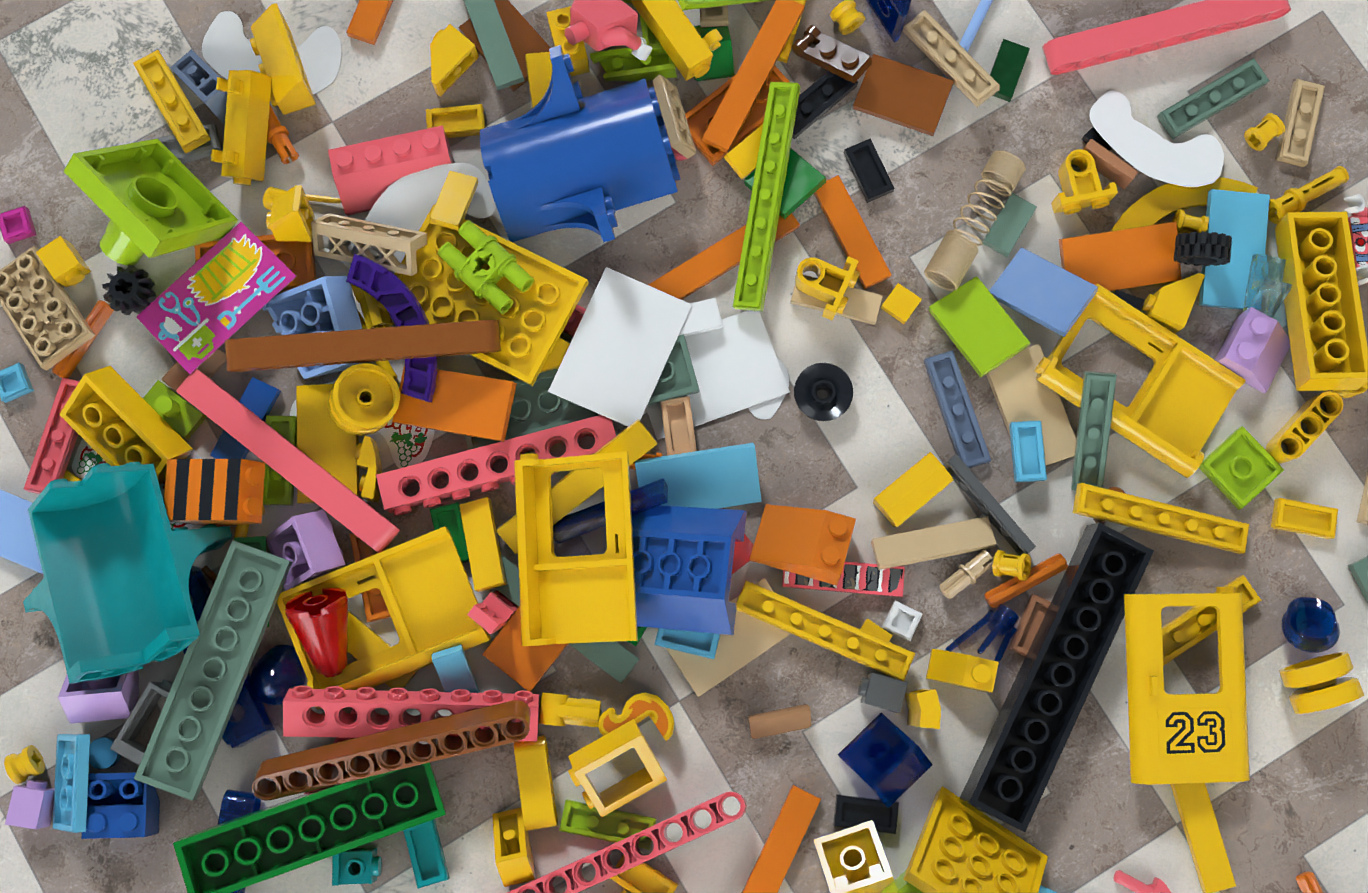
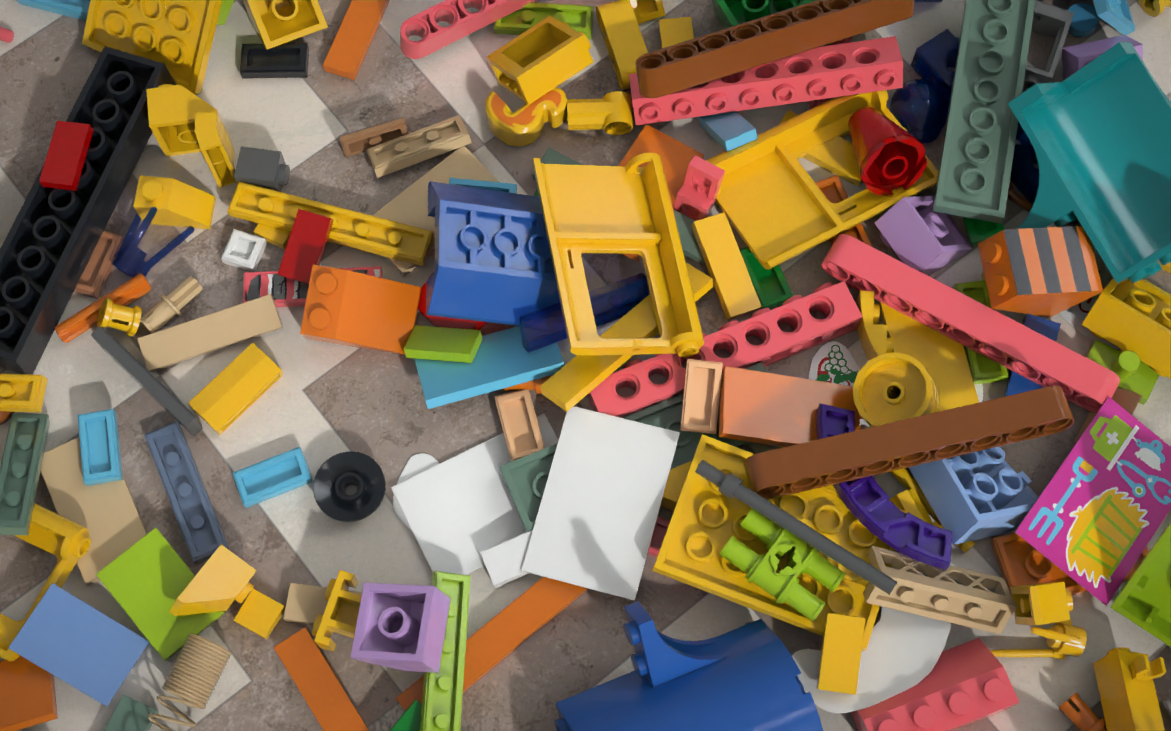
camera: 175 degrees right, 10 degrees down
(485, 789) = (675, 31): none -> yellow tile
(513, 326) = (732, 487): none -> dark grey bar
(524, 420) = (701, 396): none -> light nougat tile
(729, 497) = (443, 344): none -> lime tile
(739, 700) = (418, 146): none -> tan tile
(790, 256) = (401, 626): none -> lavender slope
(847, 606) = (305, 246): none -> red tile
(885, 759) = (258, 107): clear blue slope -> none
(886, 413) = (272, 477): none -> medium azure tile
(935, 320) = (216, 585): none -> yellow slope
(954, 748) = (173, 118): none -> yellow slope
(1059, 714) = (66, 155): none -> red tile

